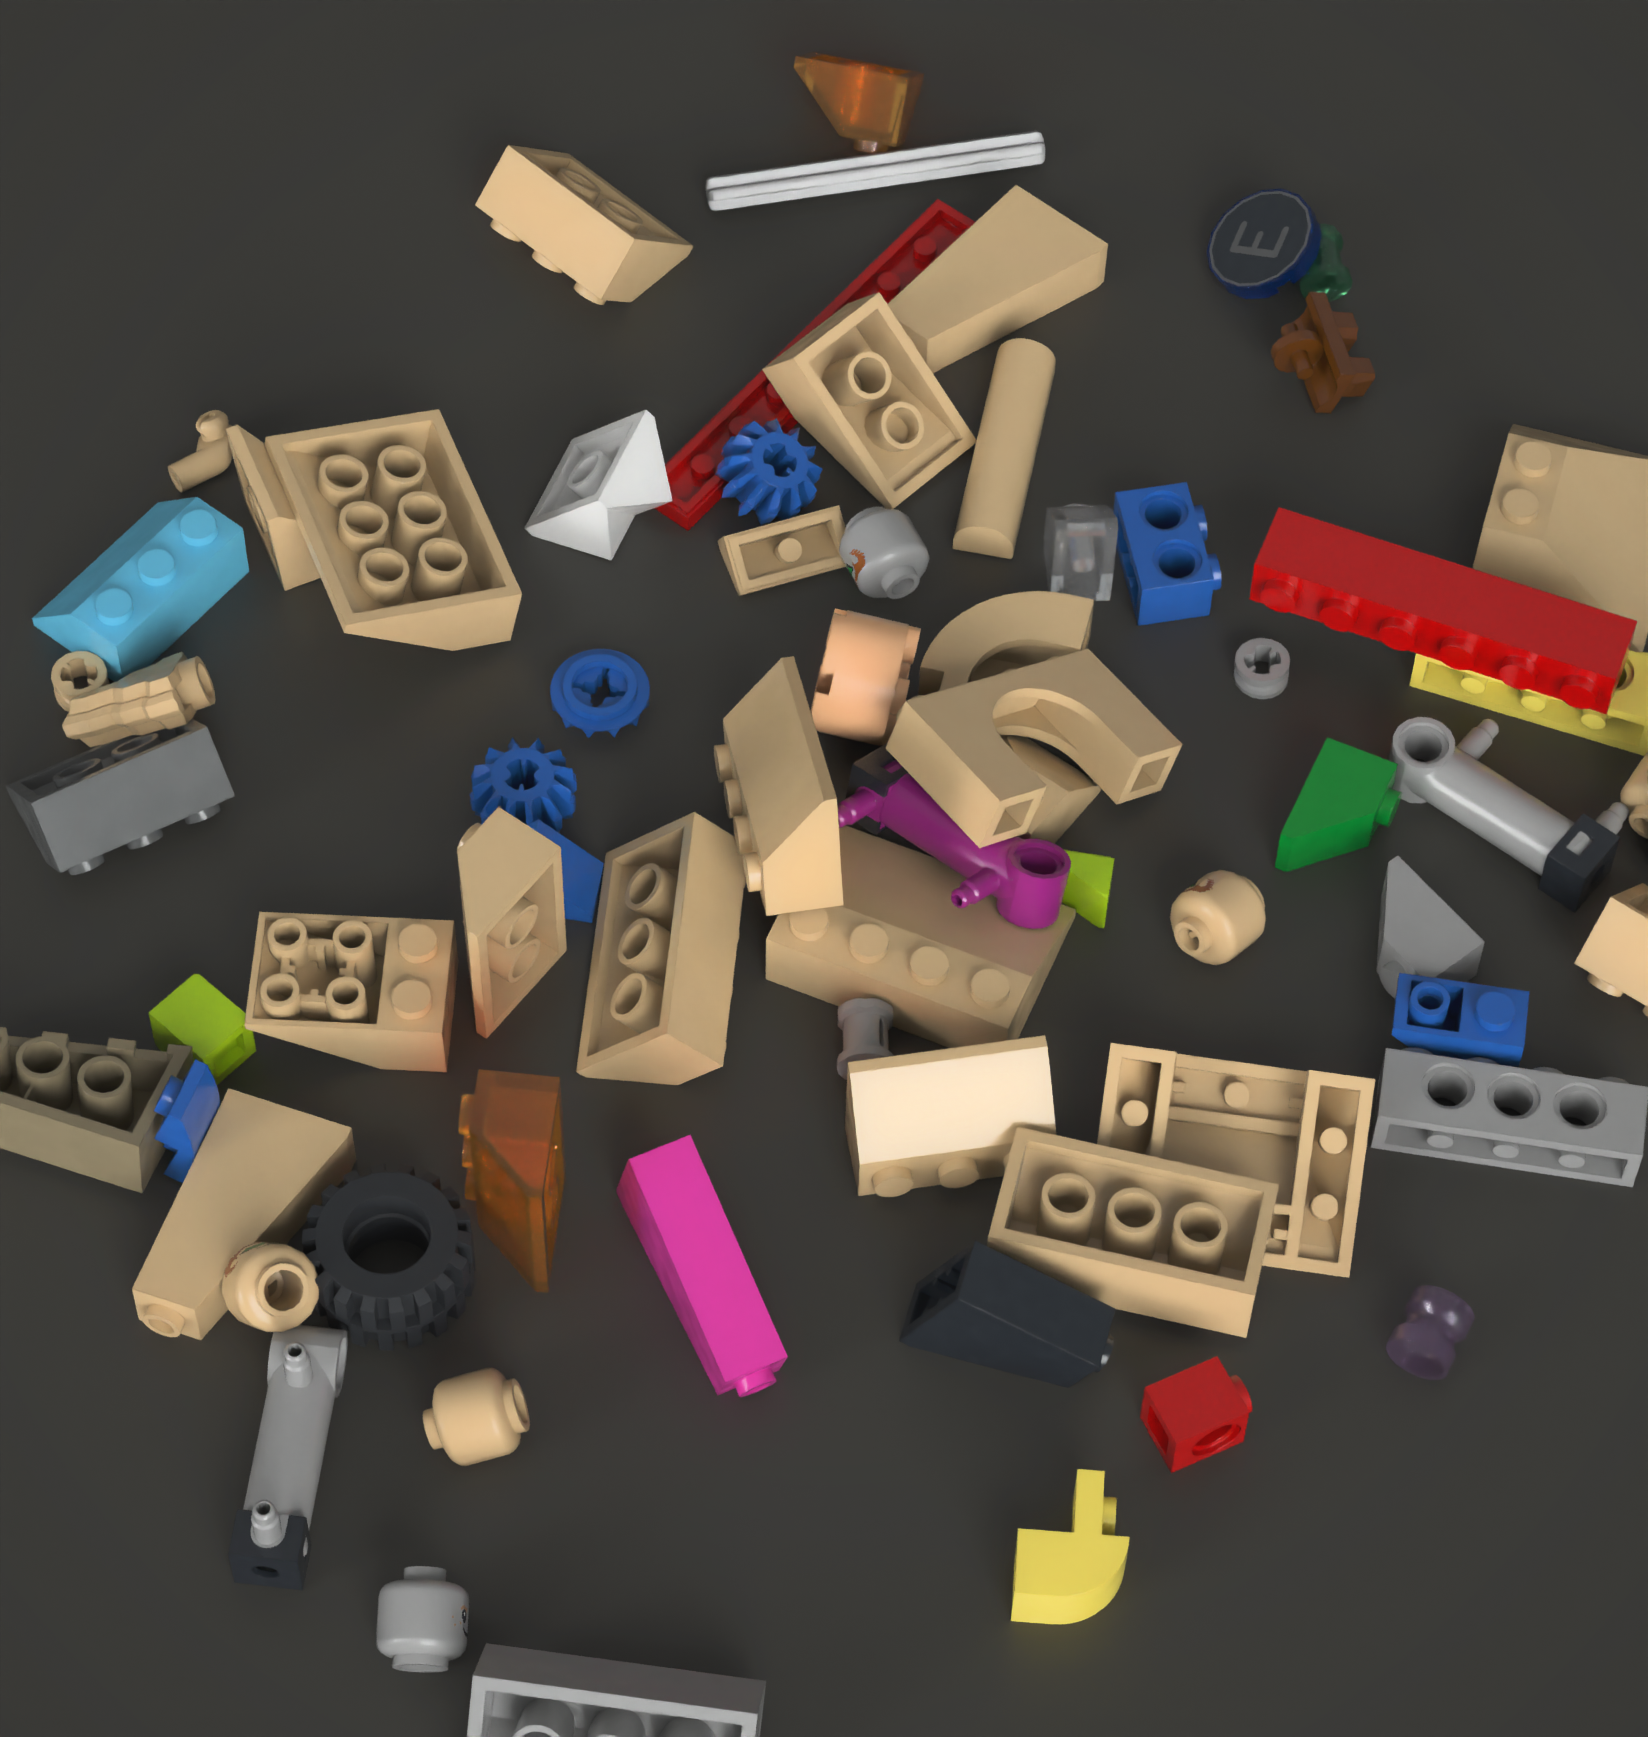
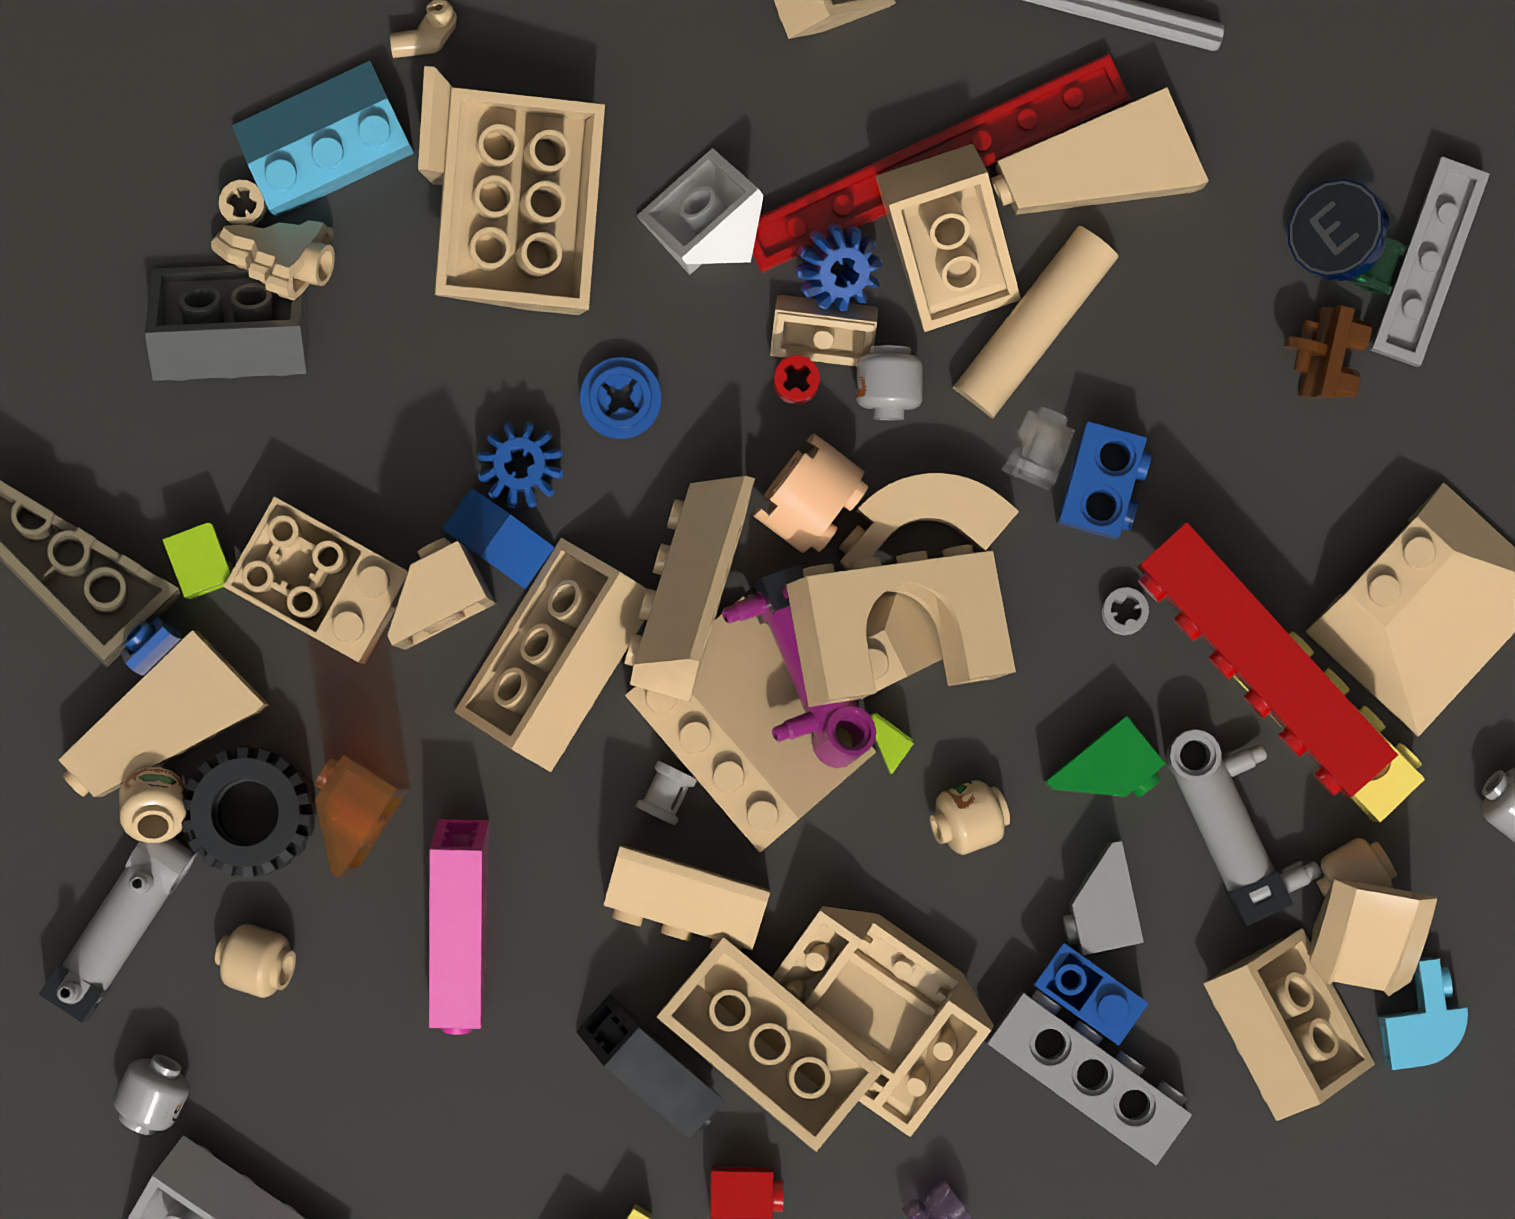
camera: 30 degrees right, 30 degrees up
(783, 590) = (797, 364): none -> red bush
(1373, 243) = (1429, 261): none -> light grey plate

